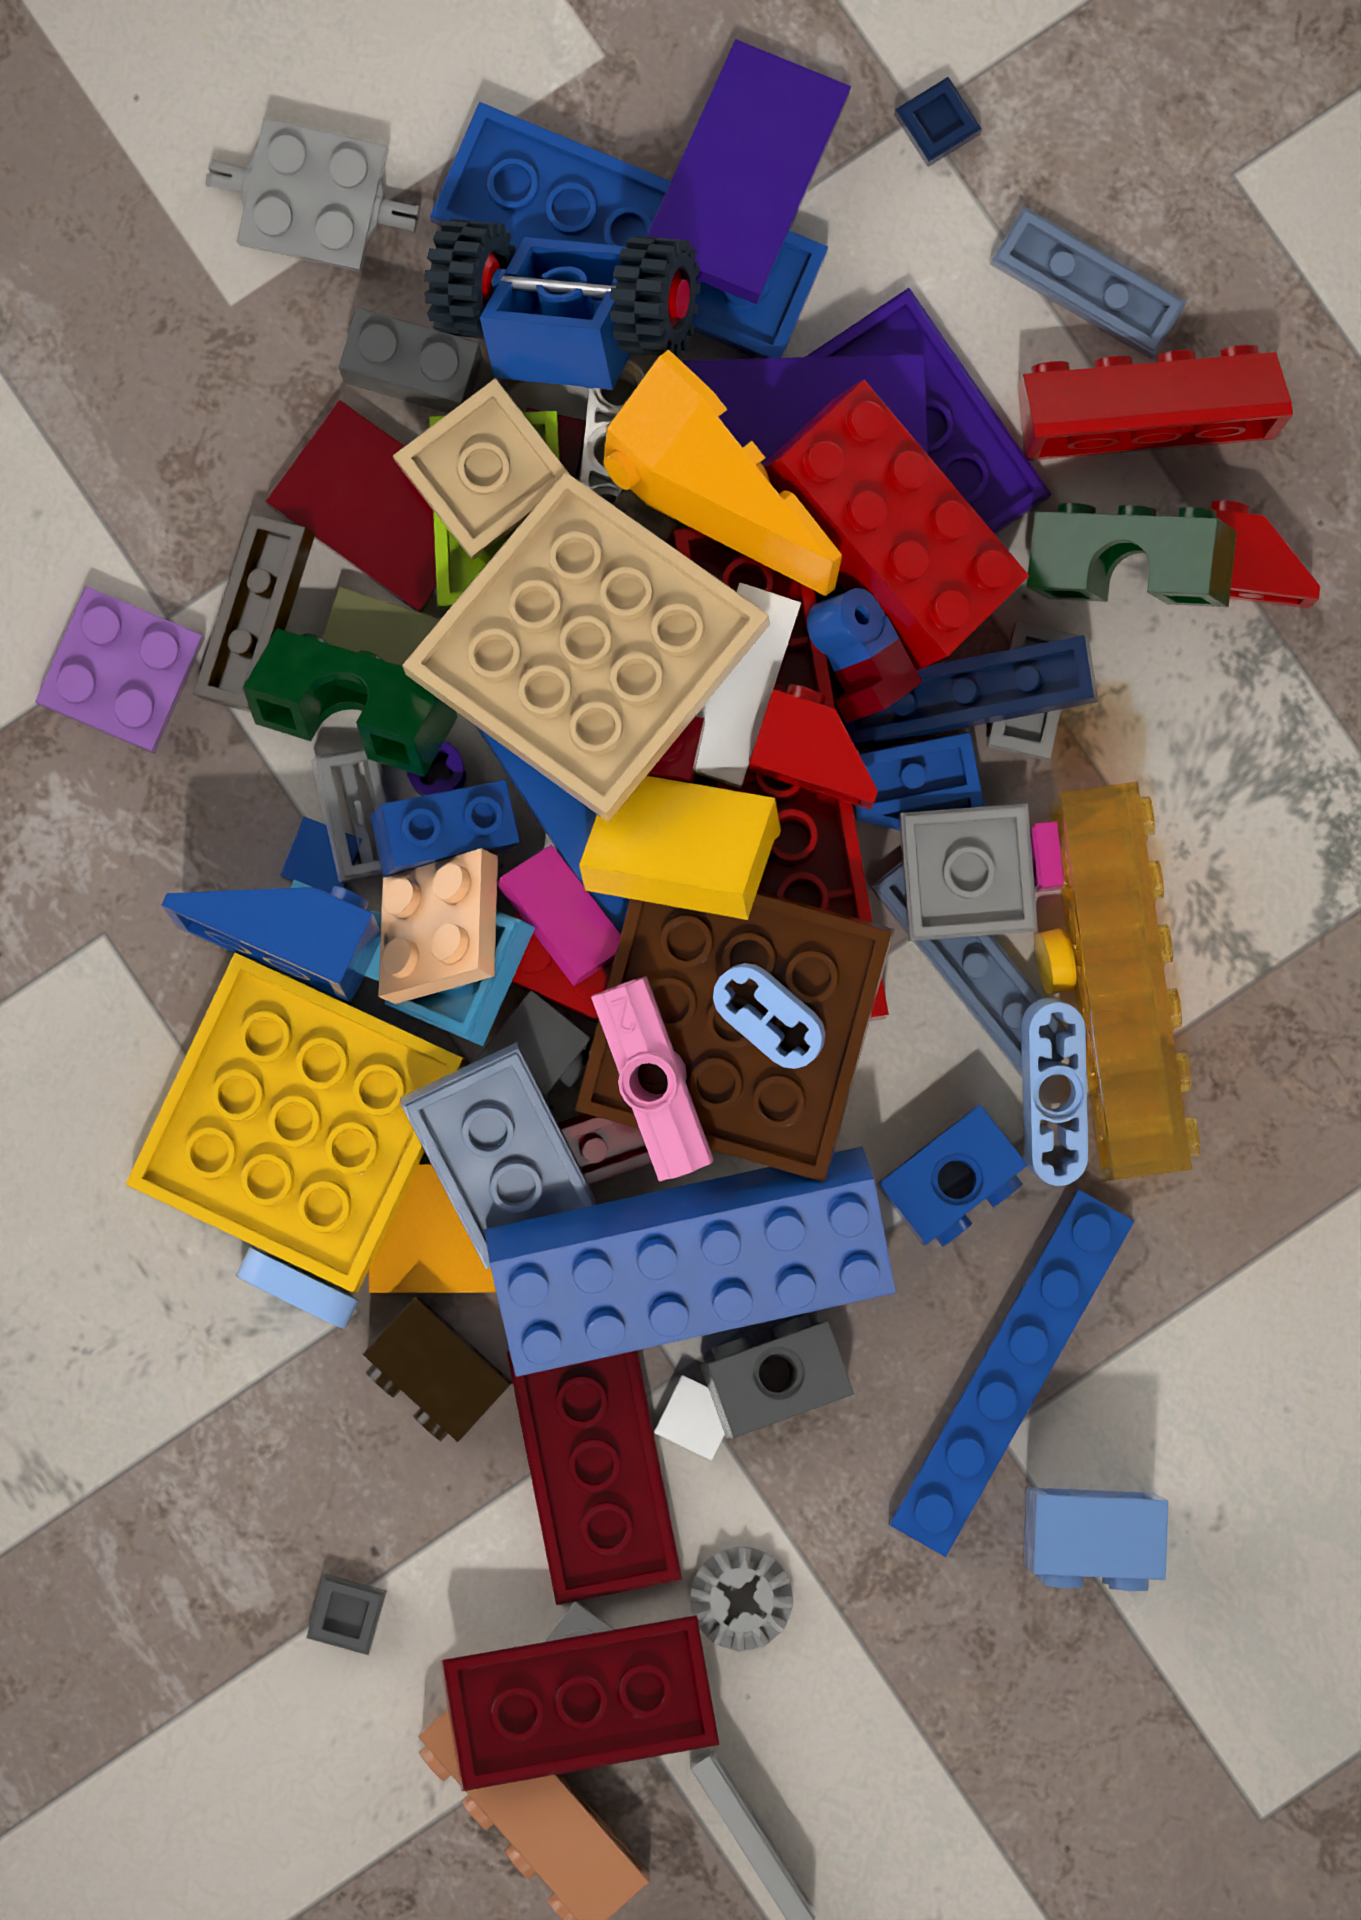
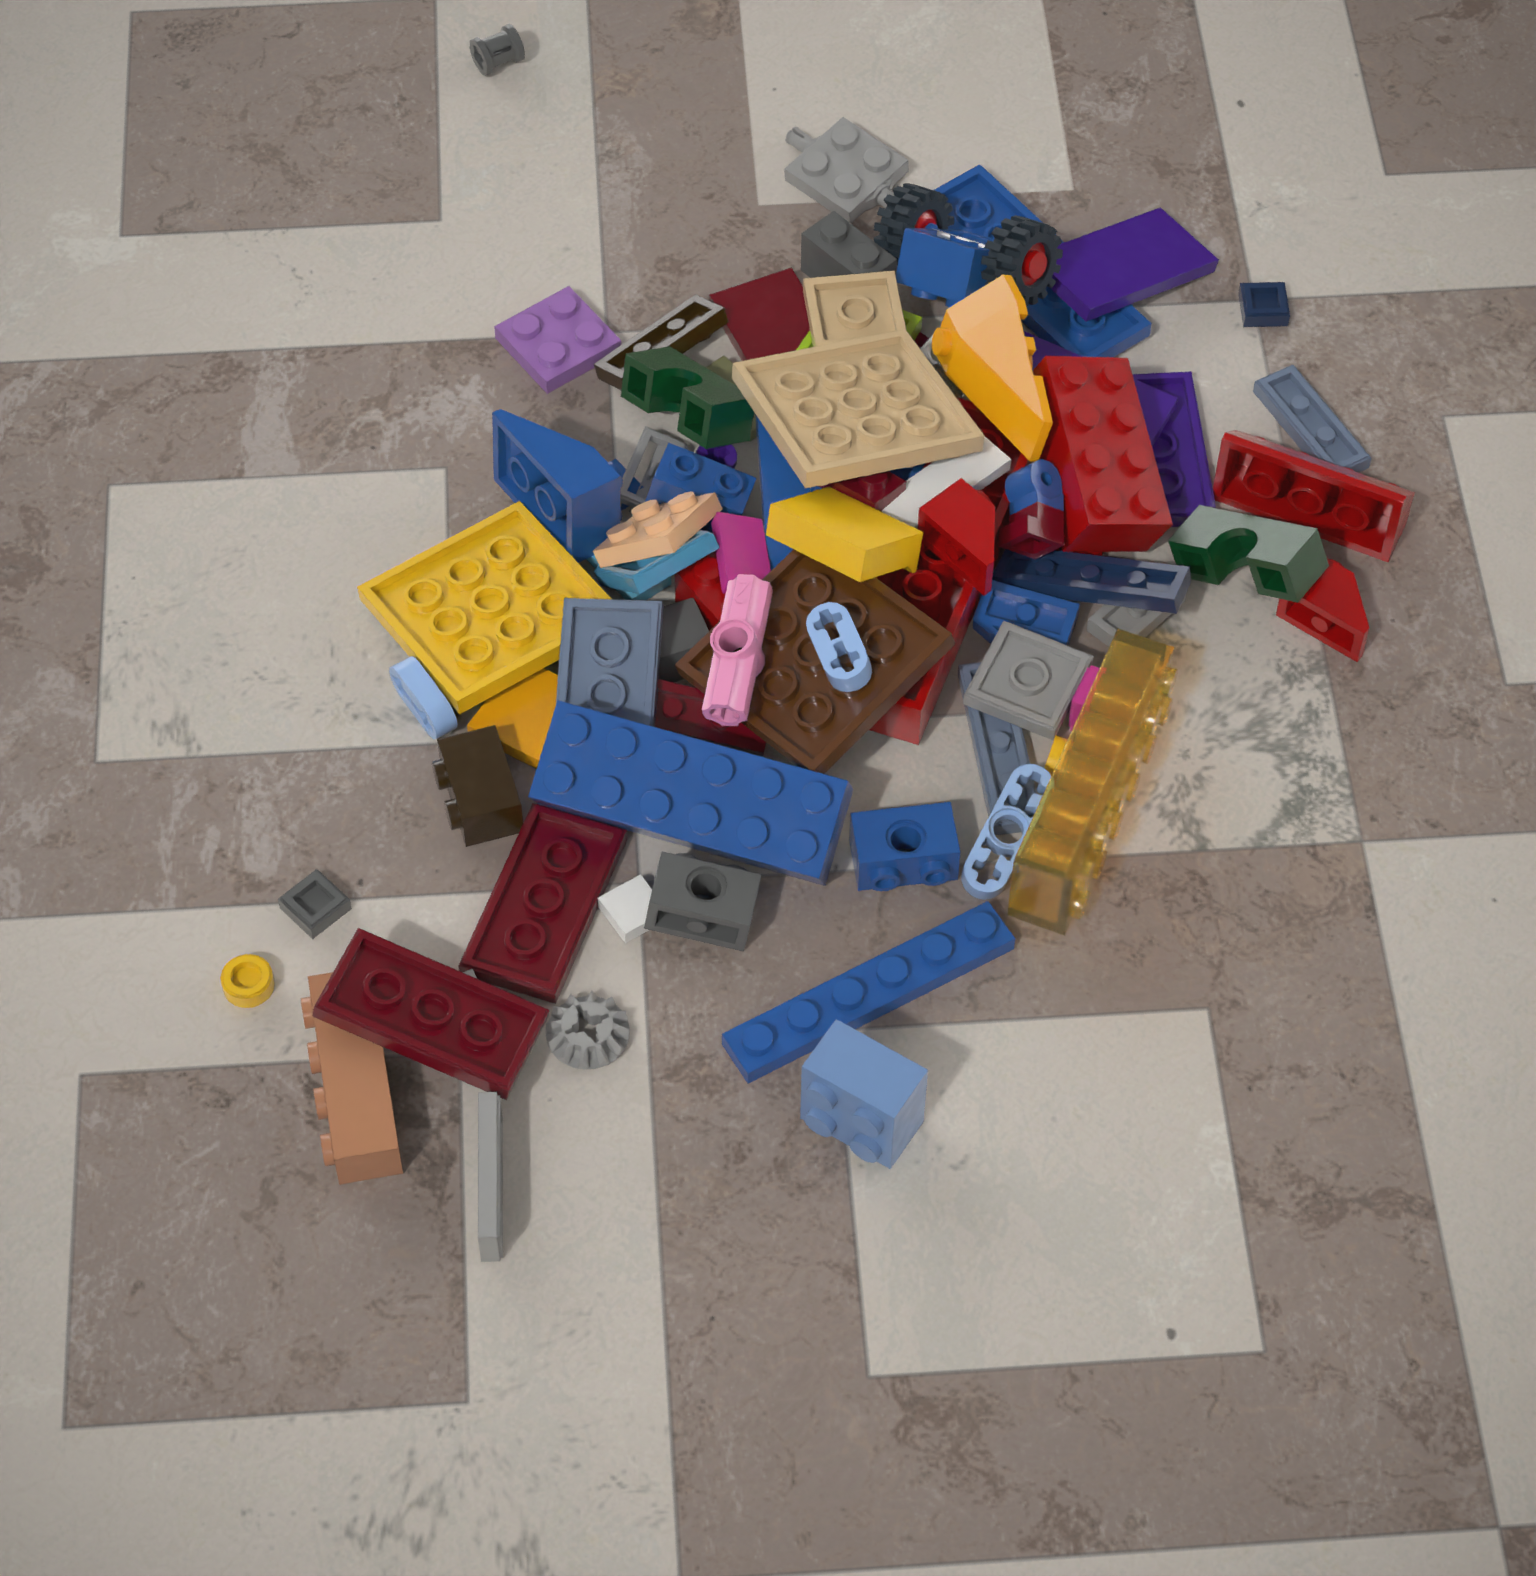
camera: 30 degrees right, 30 degrees down
(337, 1751) = (247, 981): none -> yellow tile

